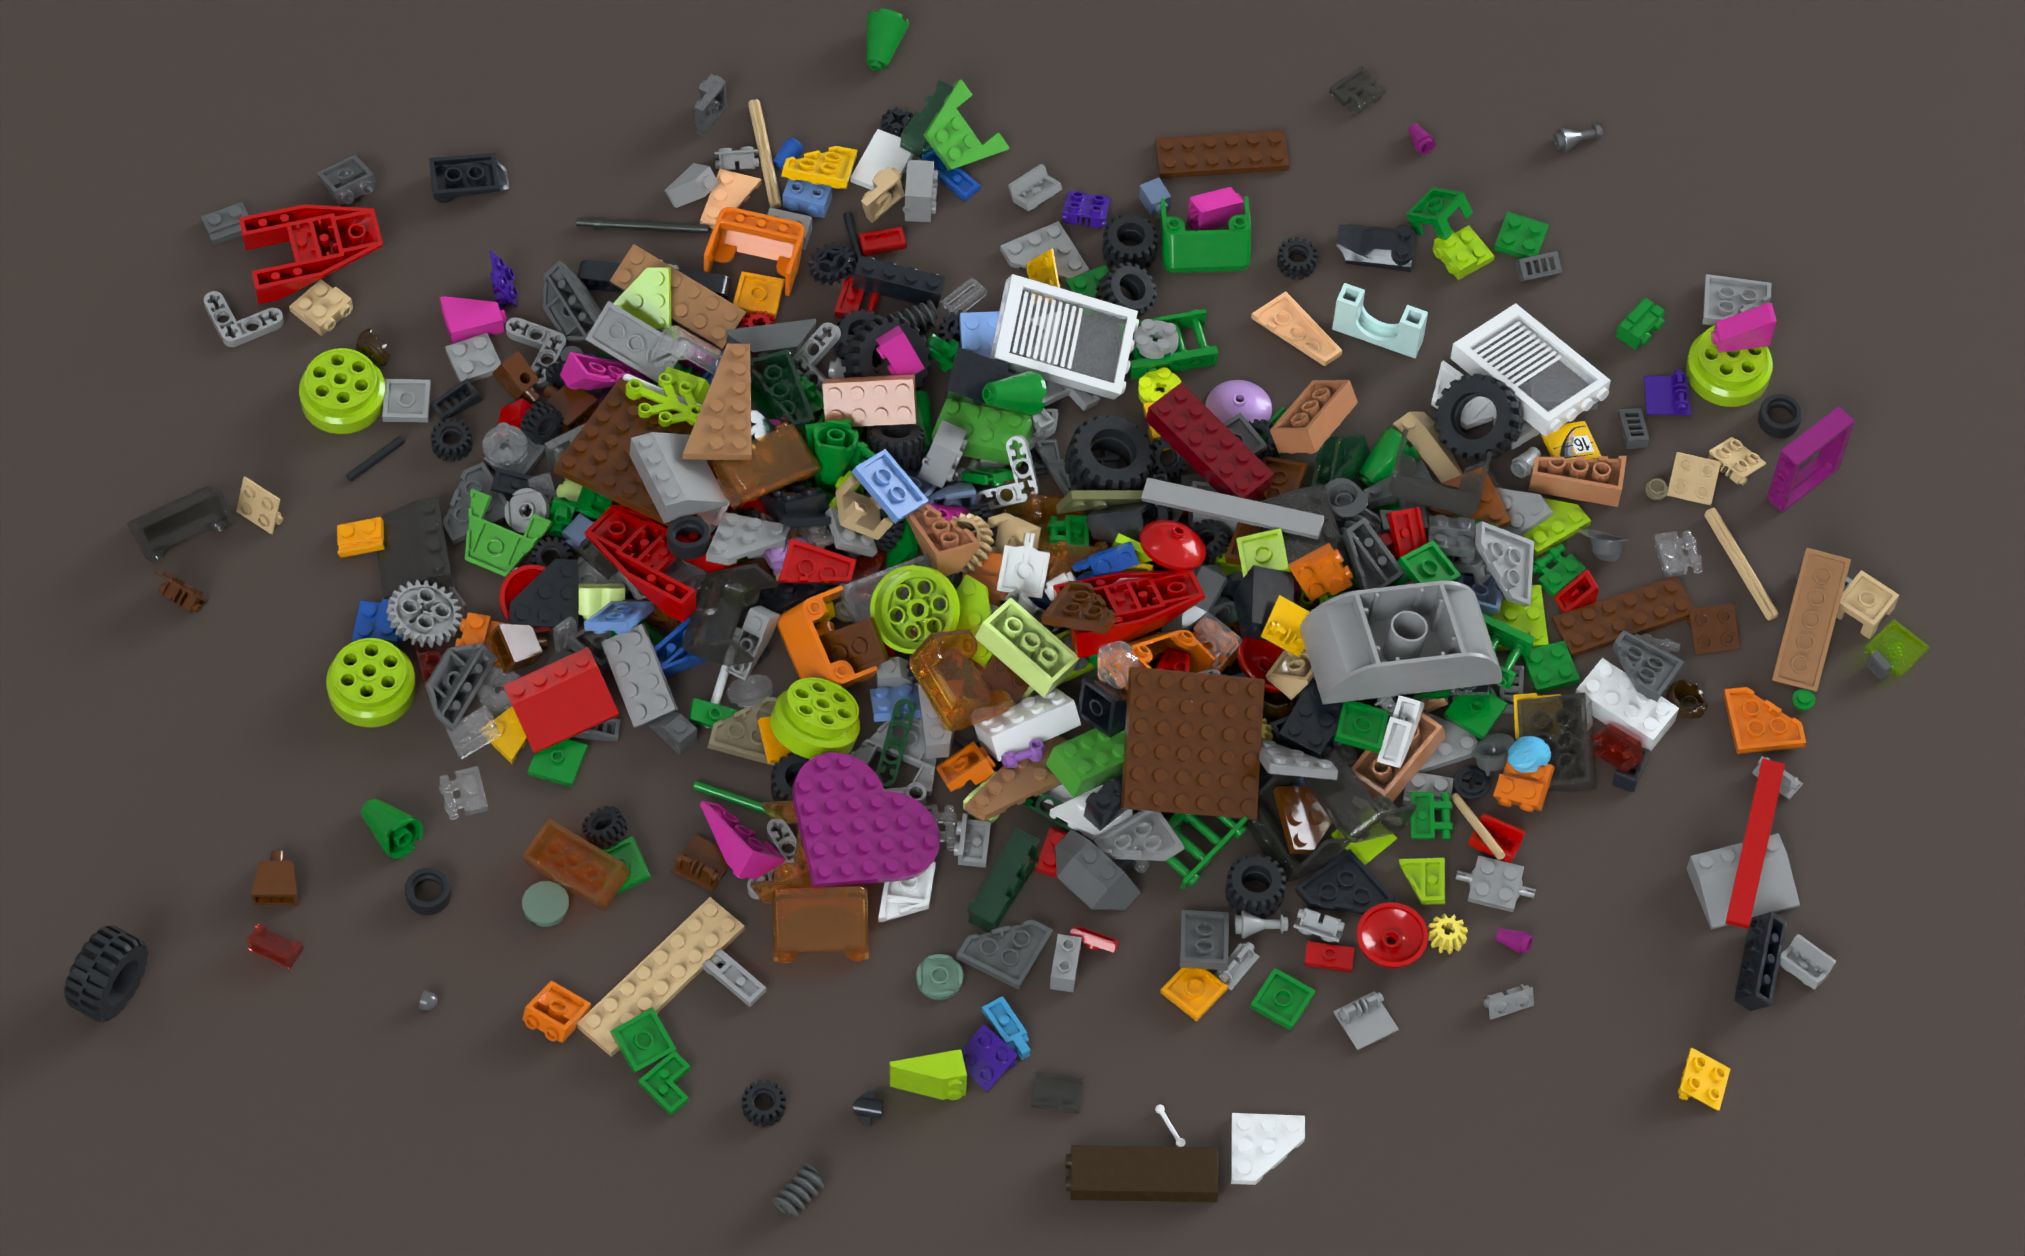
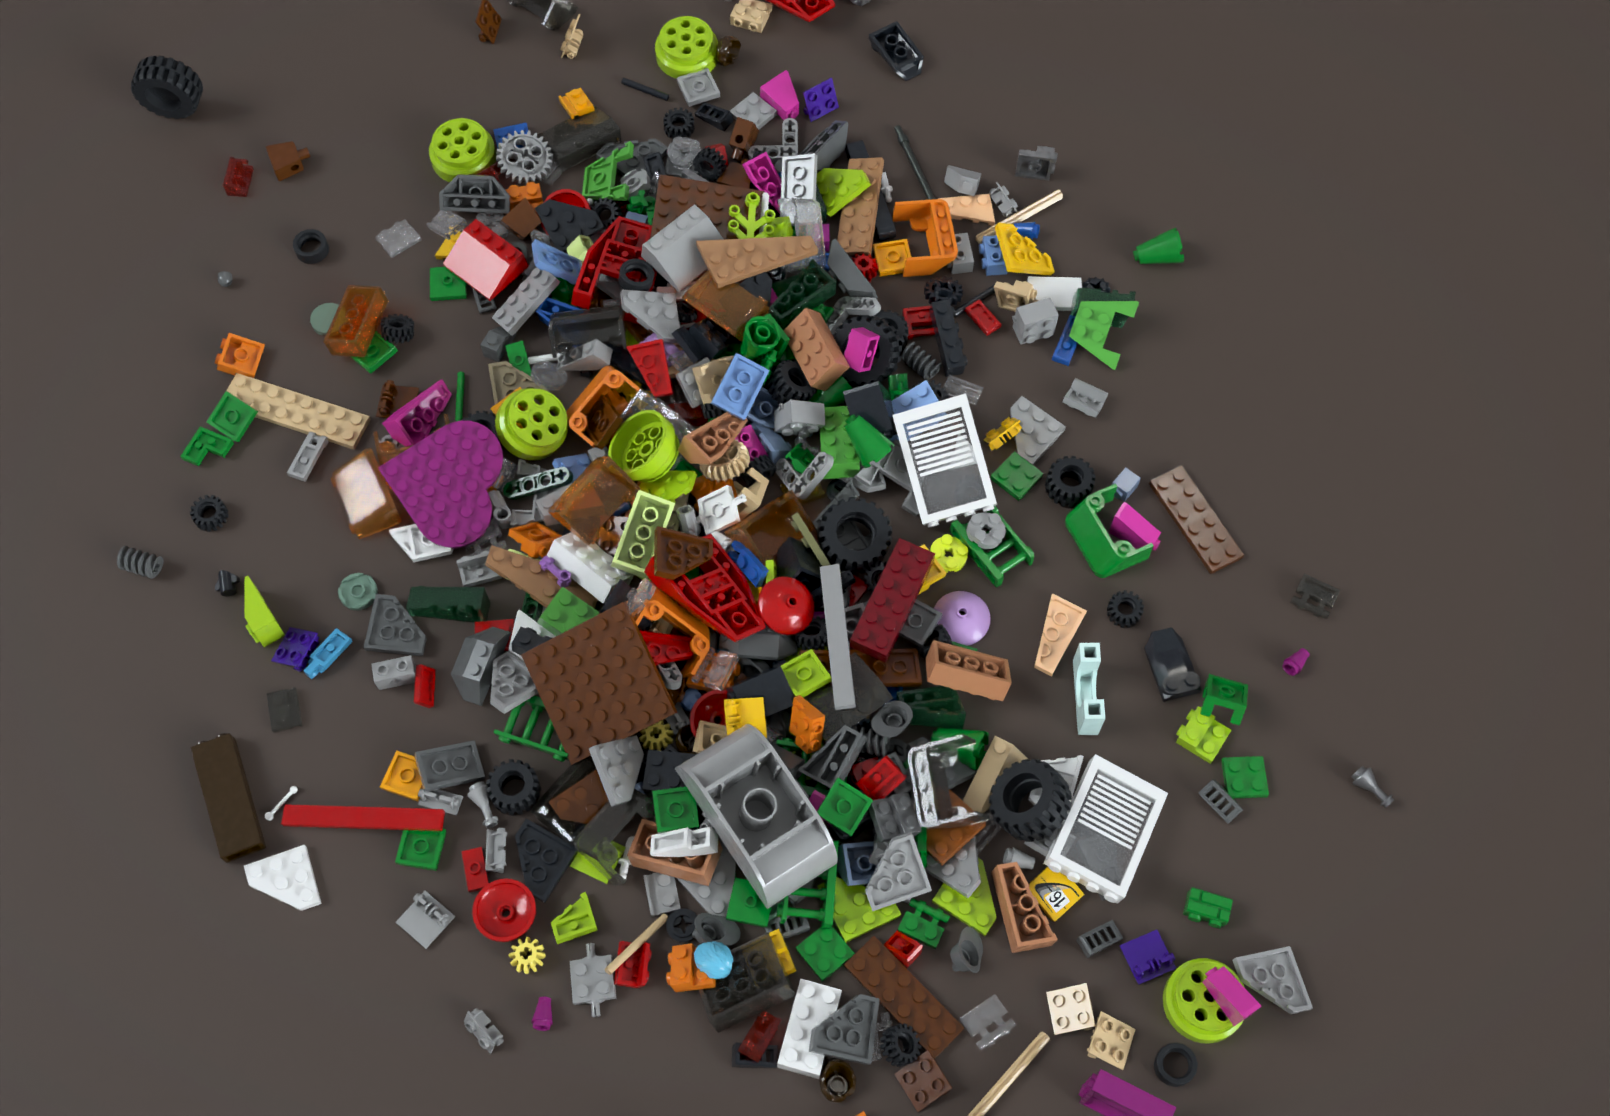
camera: 70 degrees right, 5 degrees up
(392, 828) = (348, 205): green cone -> none
(1074, 527) = (774, 538): green plate -> none
(1086, 206) = (1088, 441): dark purple hinge -> none
(1133, 280) = (1033, 486): black tyre -> none
(1227, 1044) = (363, 817): none -> red tile
(1423, 821) = (630, 896): green plate -> none
(1656, 489) = (1045, 980): dark tan plate -> none
(1674, 631) = (891, 1047): none -> black tyre

